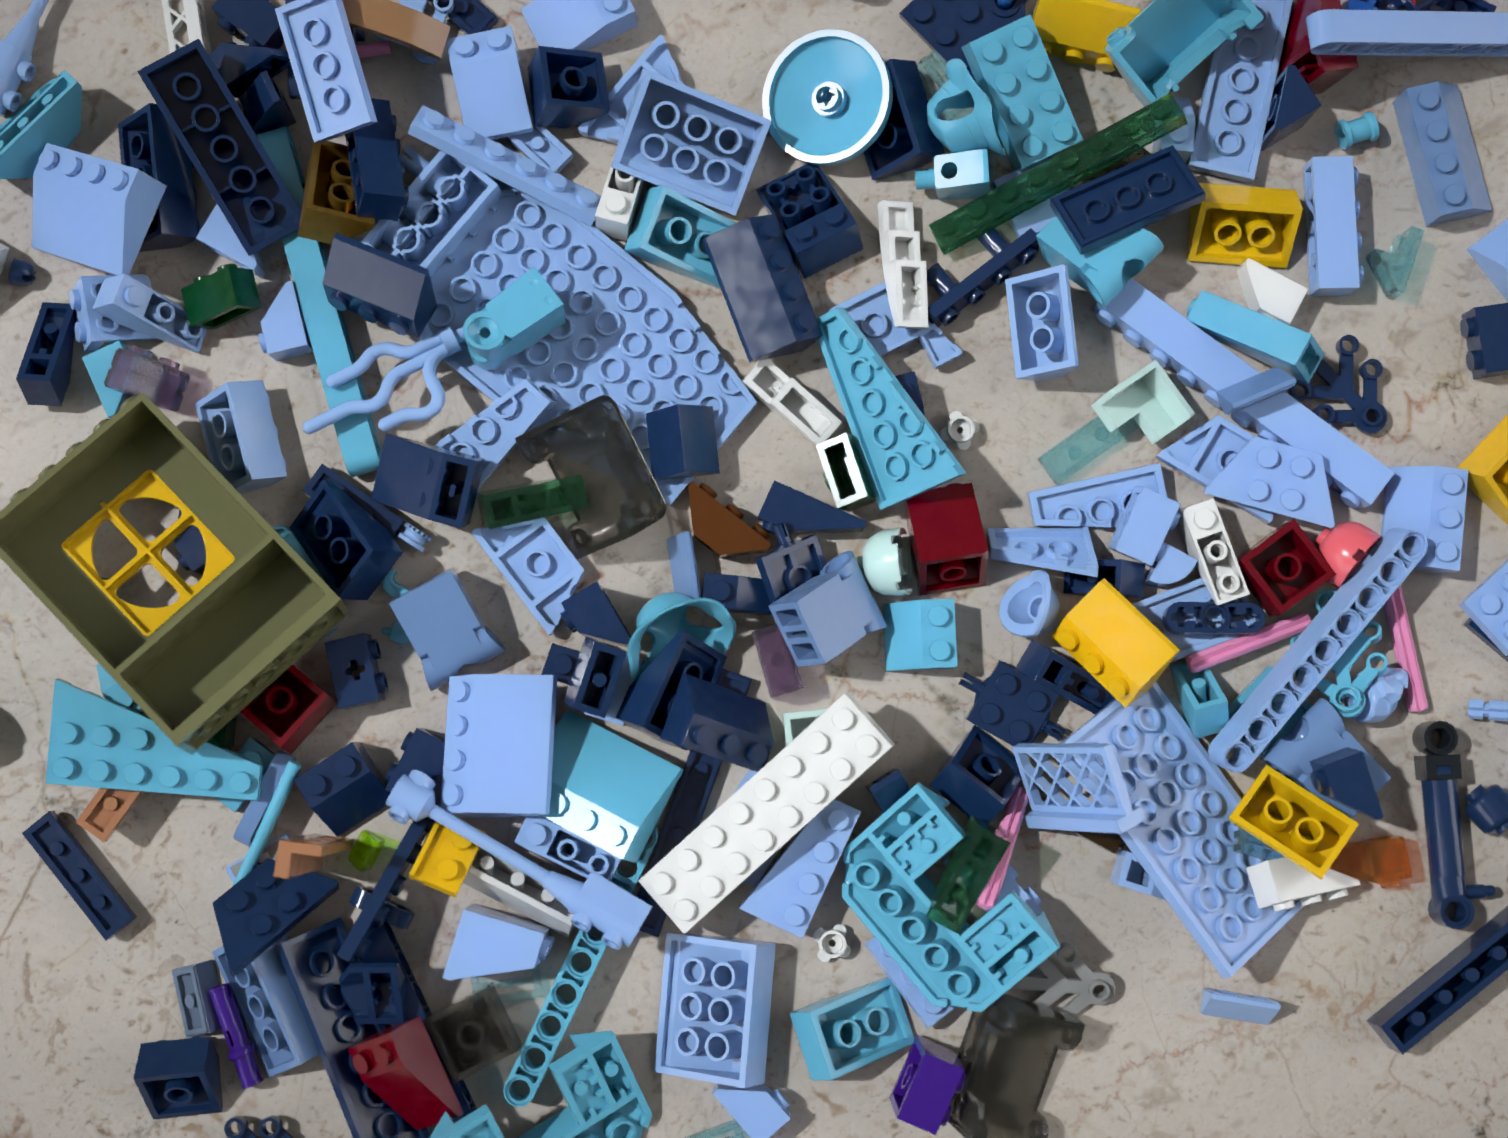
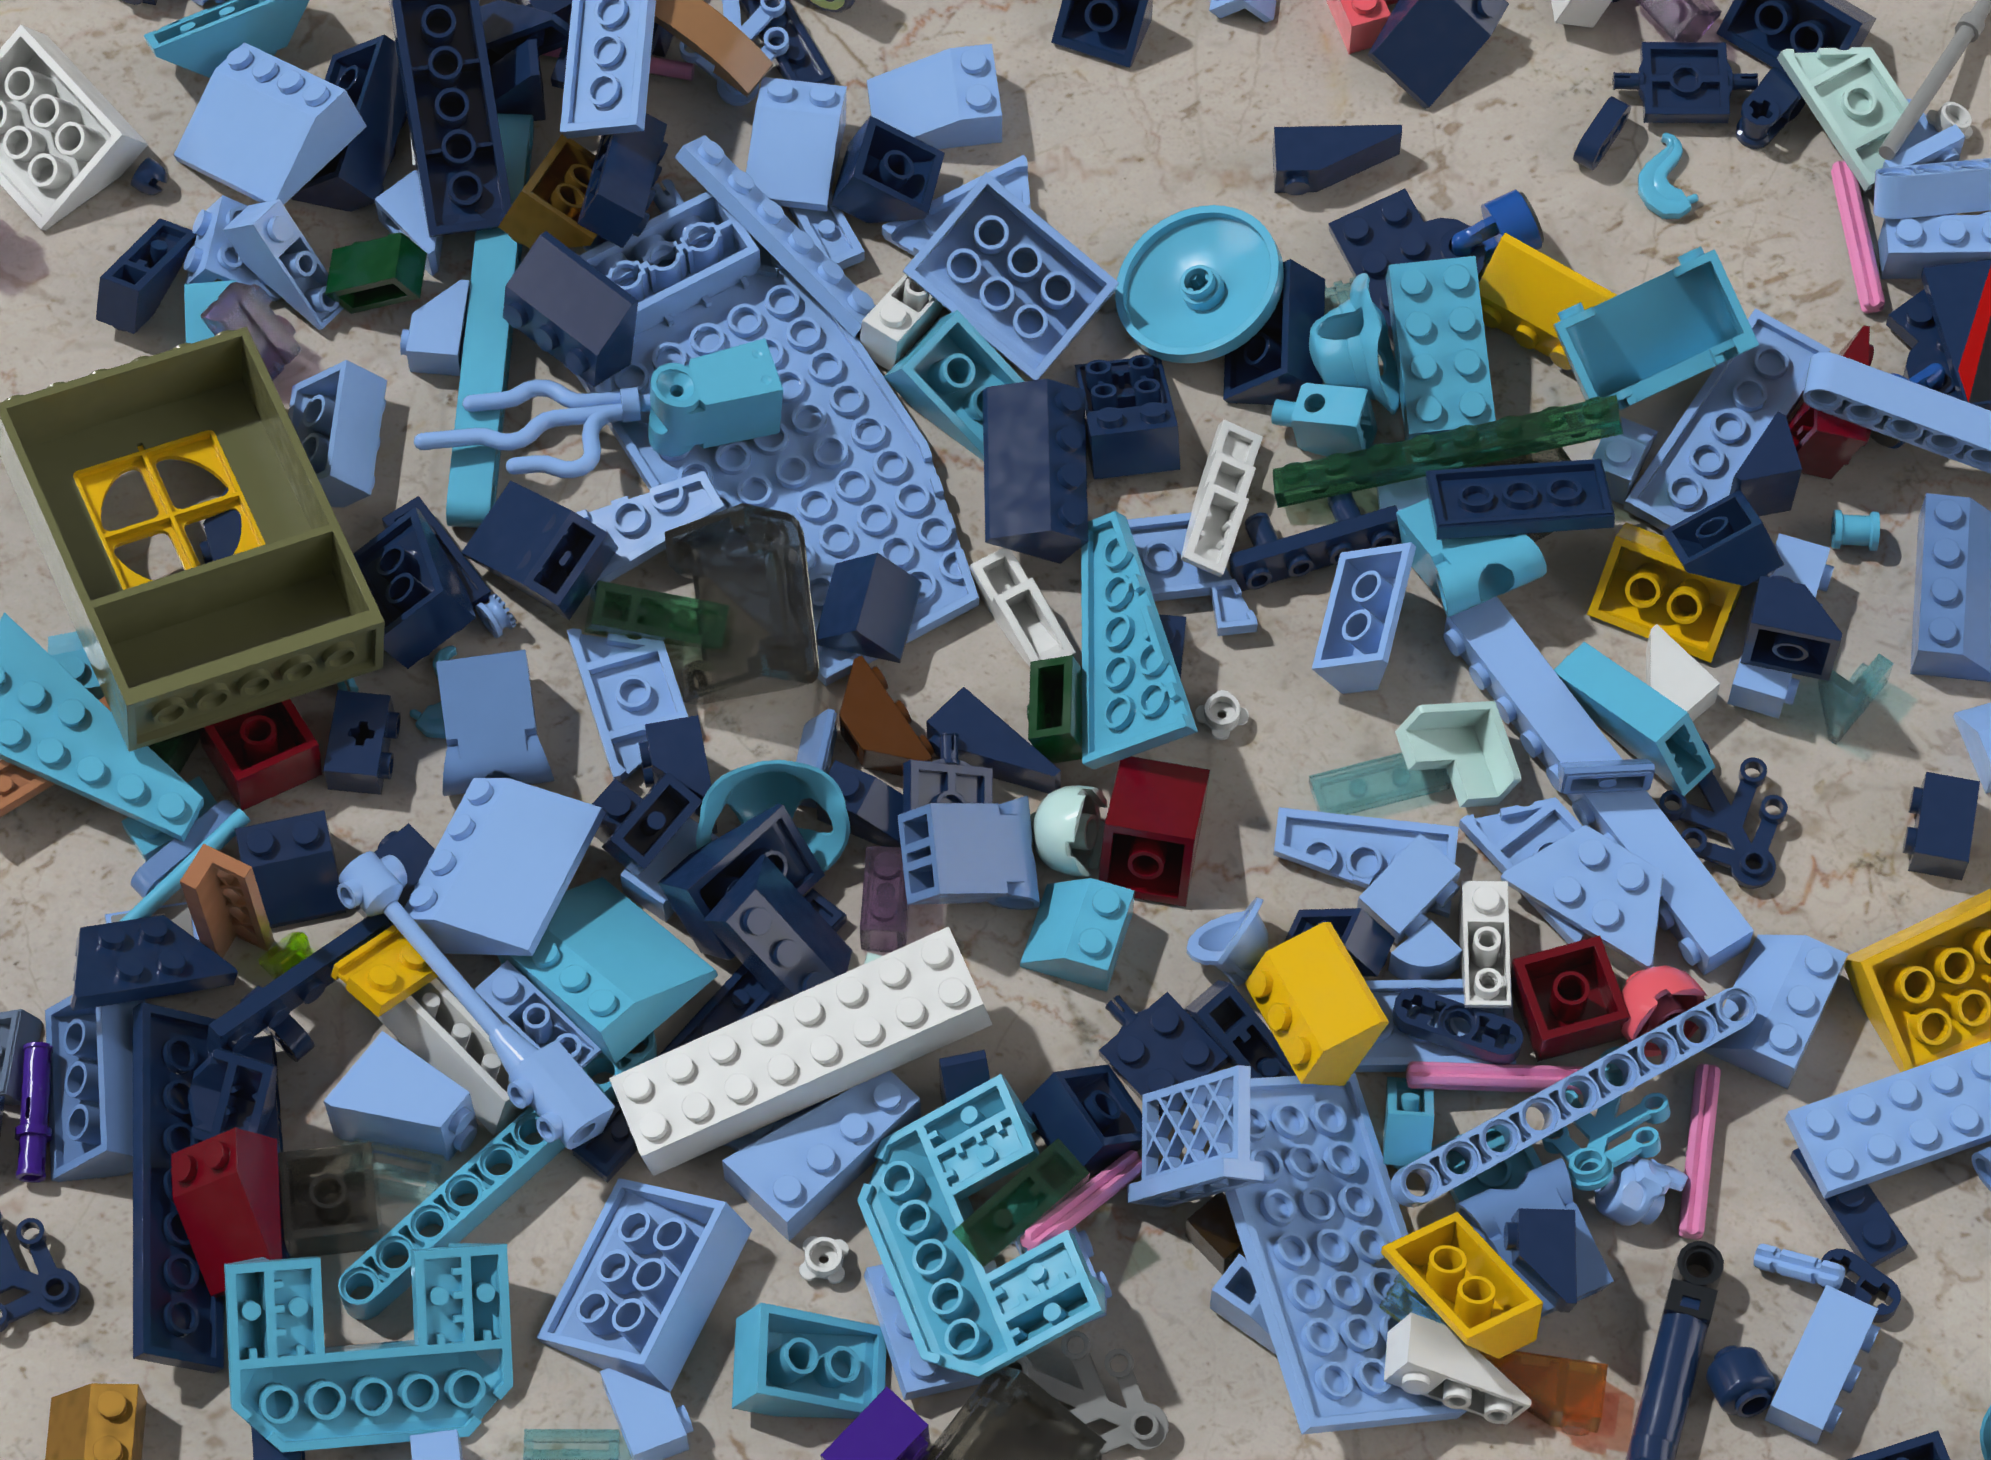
camera: 20 degrees right, 20 degrees down
(1045, 547) = (1276, 878): light blue wing -> none
(1280, 180) = (1725, 542): none -> dark blue slope
(1356, 238) = (1790, 630): none -> dark blue slope

